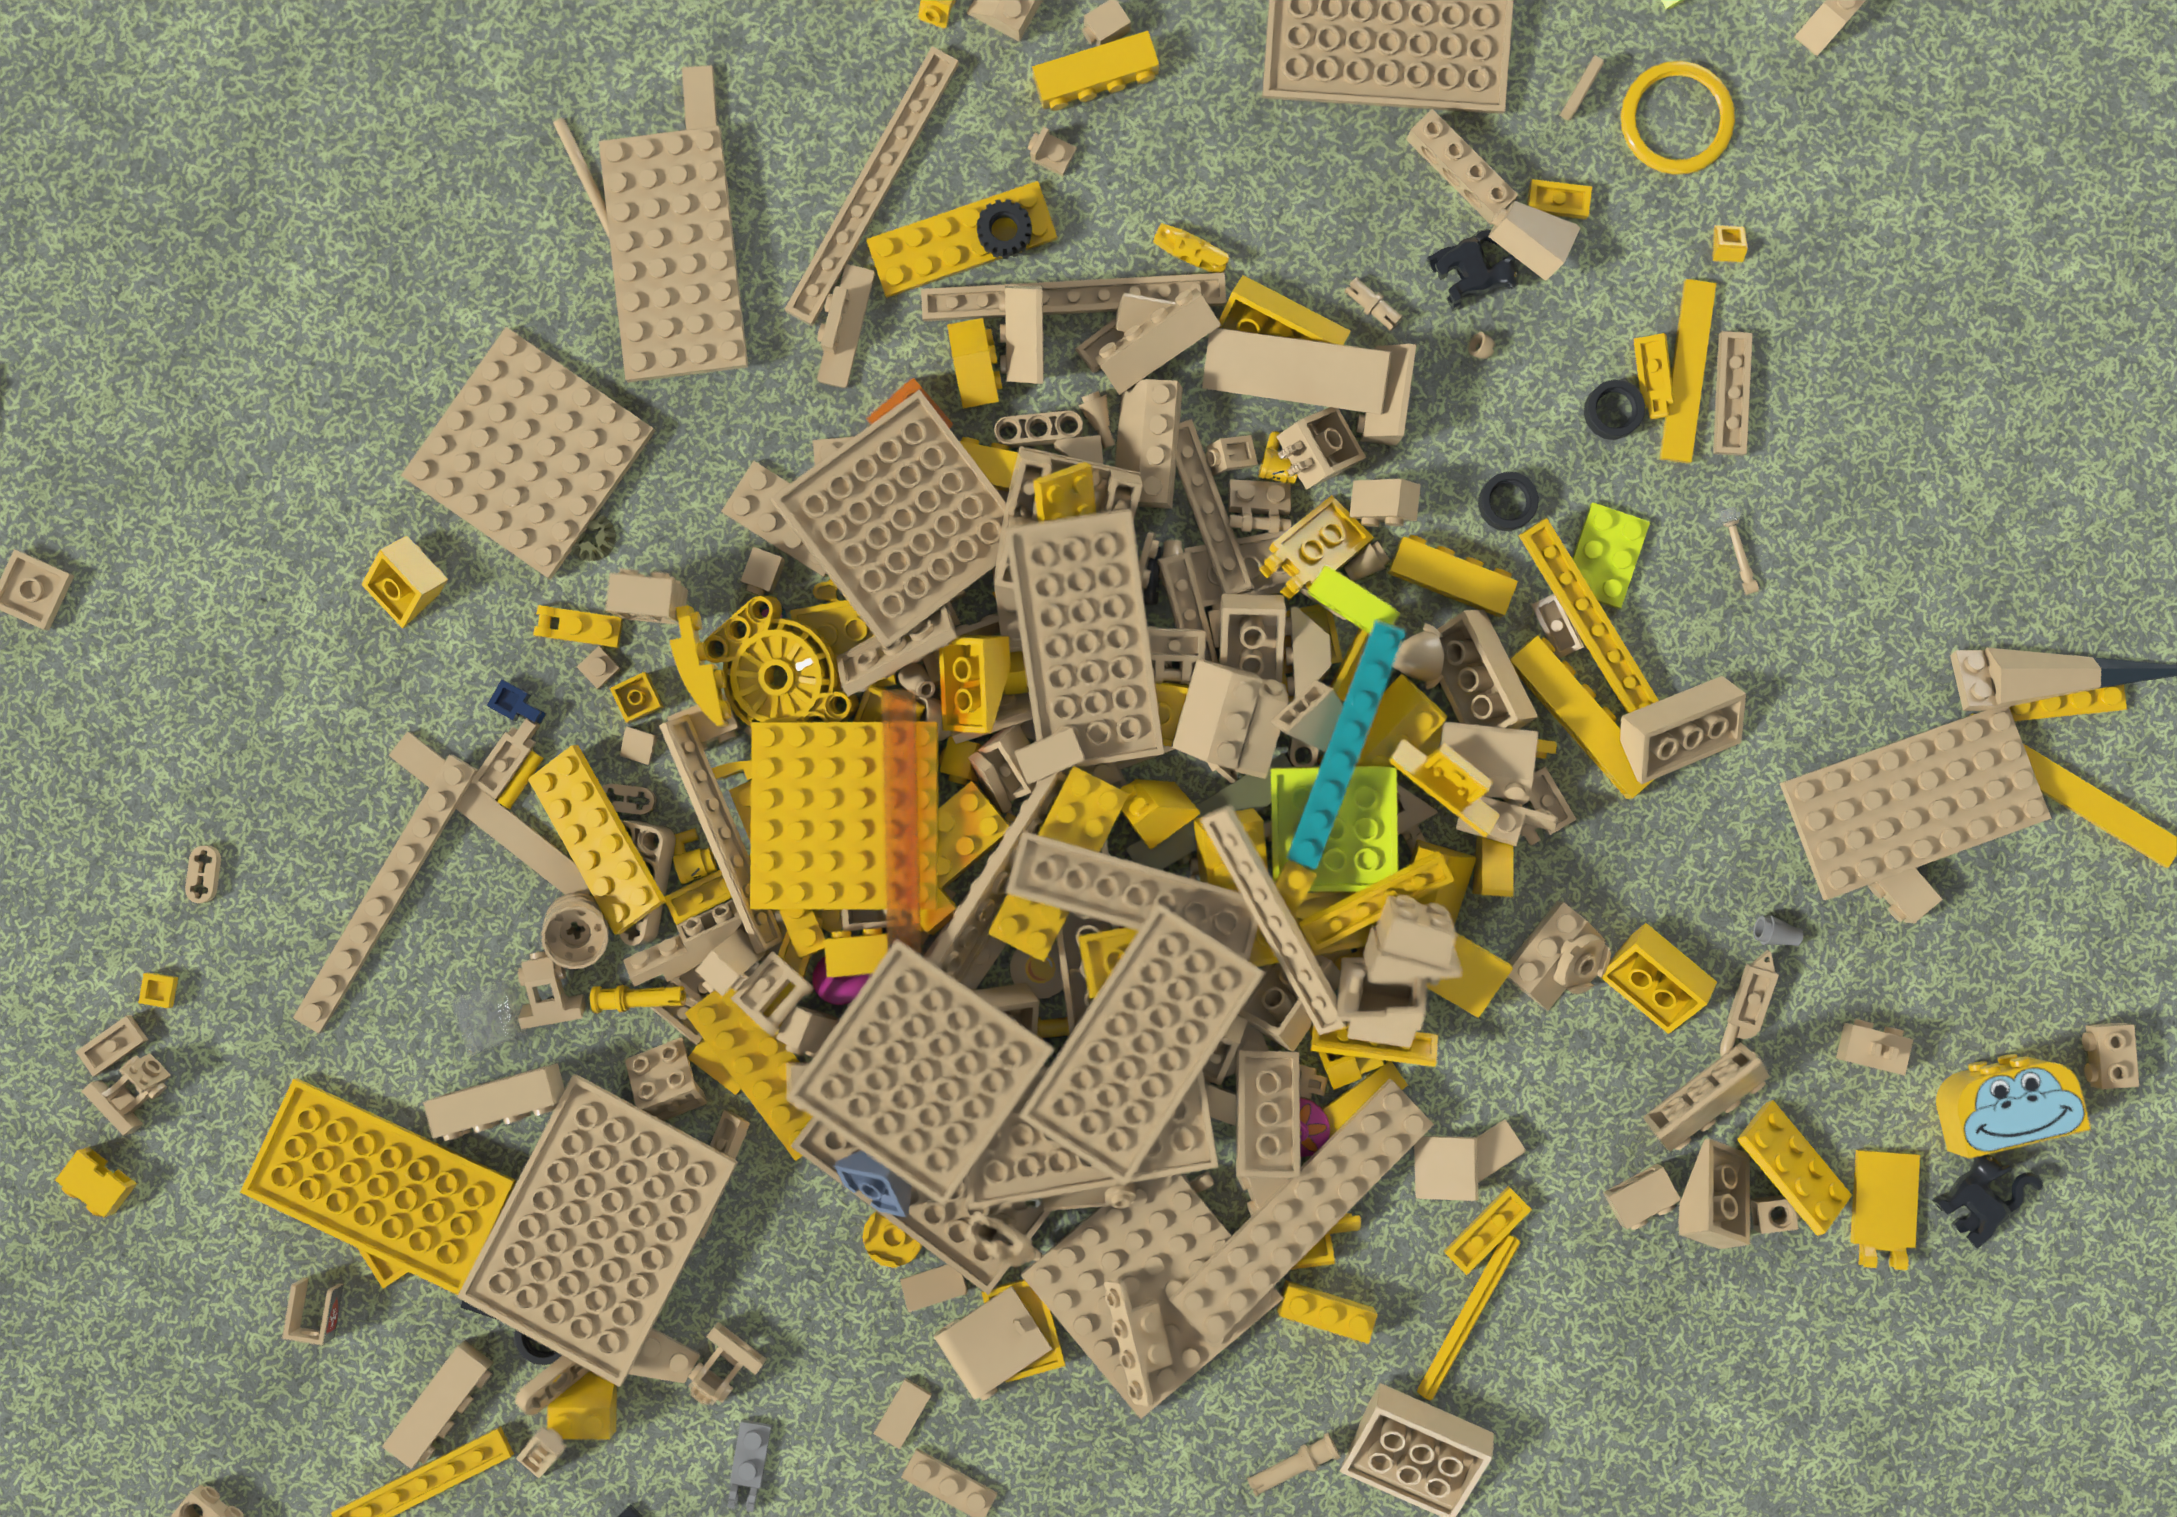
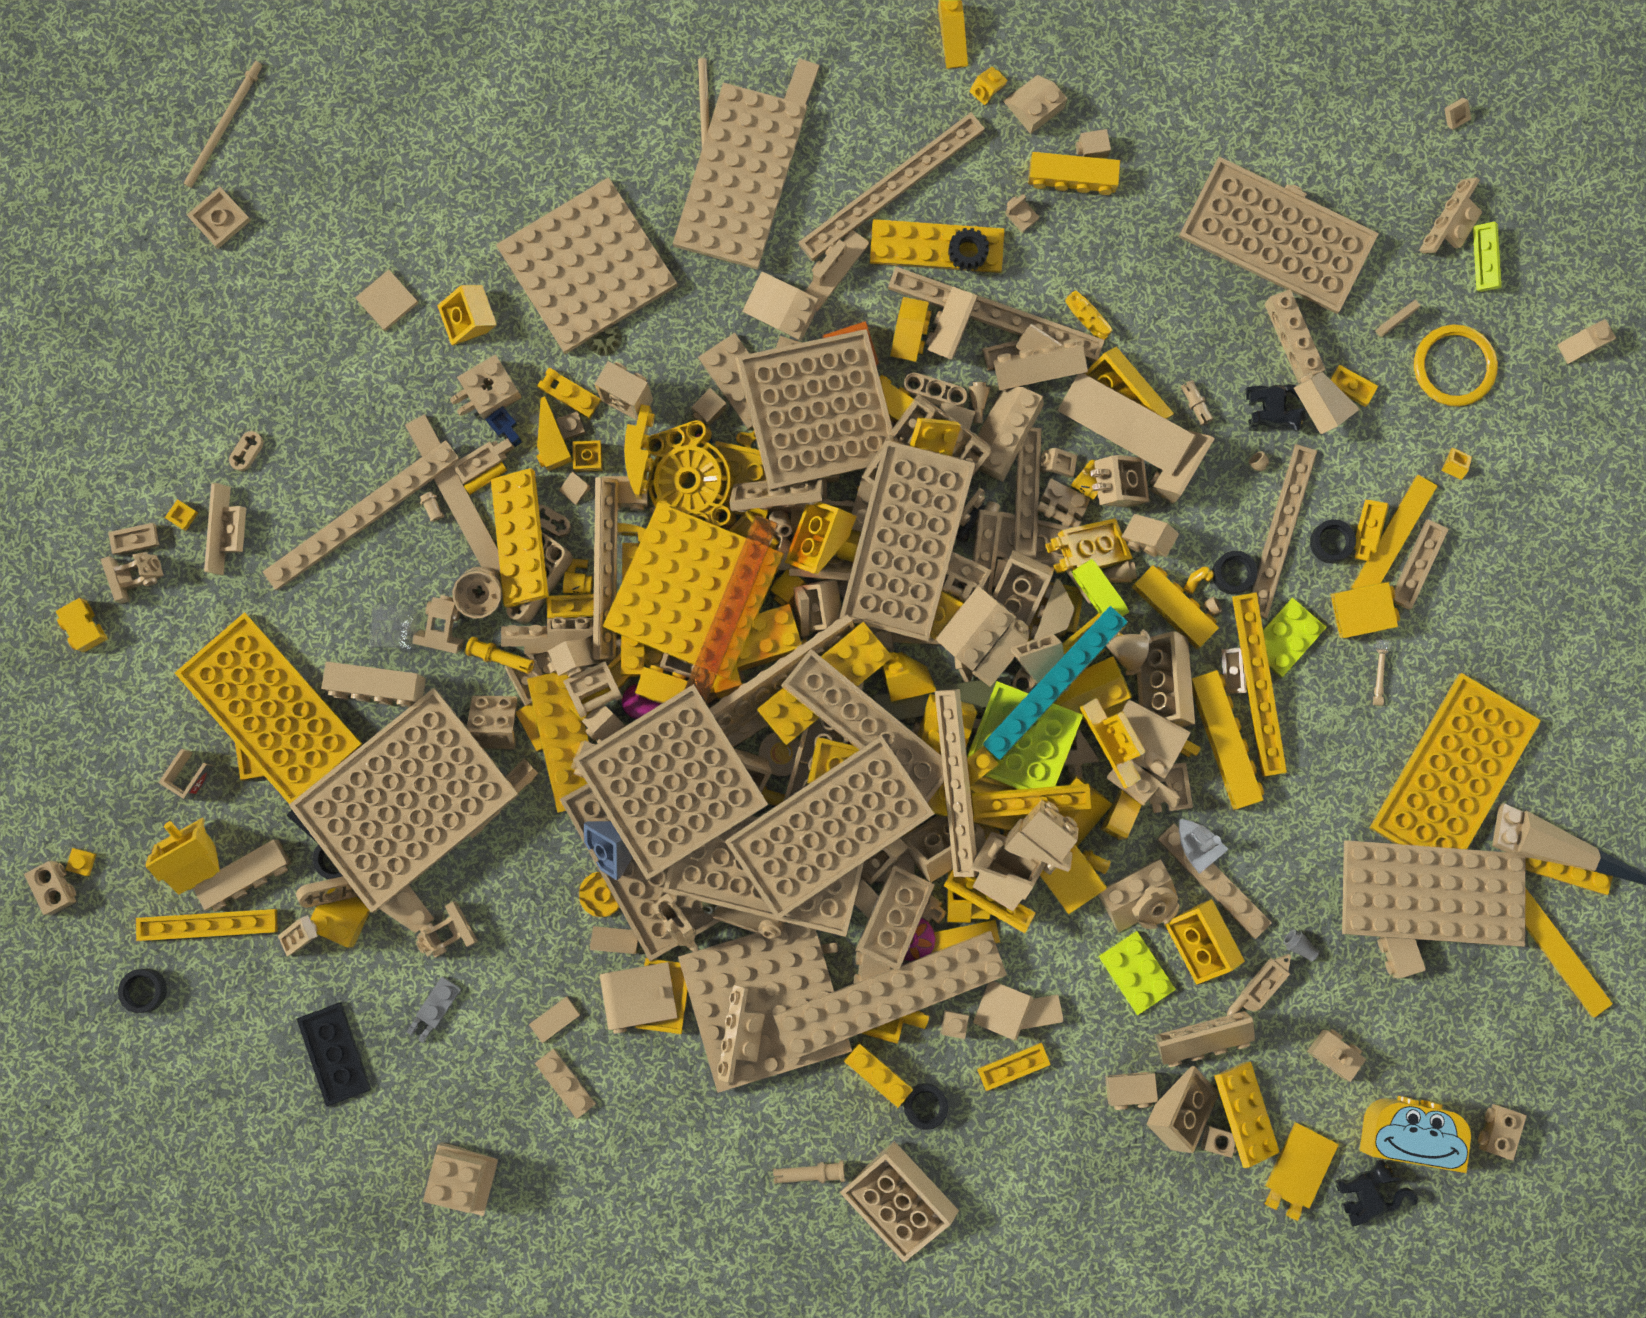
camera: 20 degrees right, 5 degrees down
(220, 985) = (225, 529): none -> tan bracket
(231, 1473) = (80, 862): none -> yellow plate
(294, 605) = (386, 300): none -> tan tile
(356, 1416) = (184, 857): none -> yellow piece
(454, 666) = (475, 387): none -> tan hinge
(468, 844) = (431, 506): none -> tan pin
(582, 700) = (550, 440): none -> yellow slope
(798, 401) = (781, 306): none -> tan slope
(1049, 755) = (849, 607): tan slope -> none
(1394, 1211) = (954, 1024): none -> tan brick
(1422, 1335) = (938, 1119): none -> black tyre
(1463, 526) = (1195, 577): none -> yellow arm
(1468, 1317) = (975, 1122): yellow axle -> none
(1485, 936) = (1098, 863): none -> yellow pin
(1499, 555) = (1213, 606): none -> tan hinge
(1544, 416) = (1282, 526): none -> tan tile
(1590, 1051) = (1136, 972): none -> neon yellow plate
(1603, 861) = (1200, 844): none -> light grey shield
(1639, 897) = (1218, 886): none -> tan plate
(1683, 728) = (1292, 775): tan slope -> none
(1689, 480) = (1365, 609): none -> yellow brick
(1880, 632) = (1456, 769): none -> yellow plate

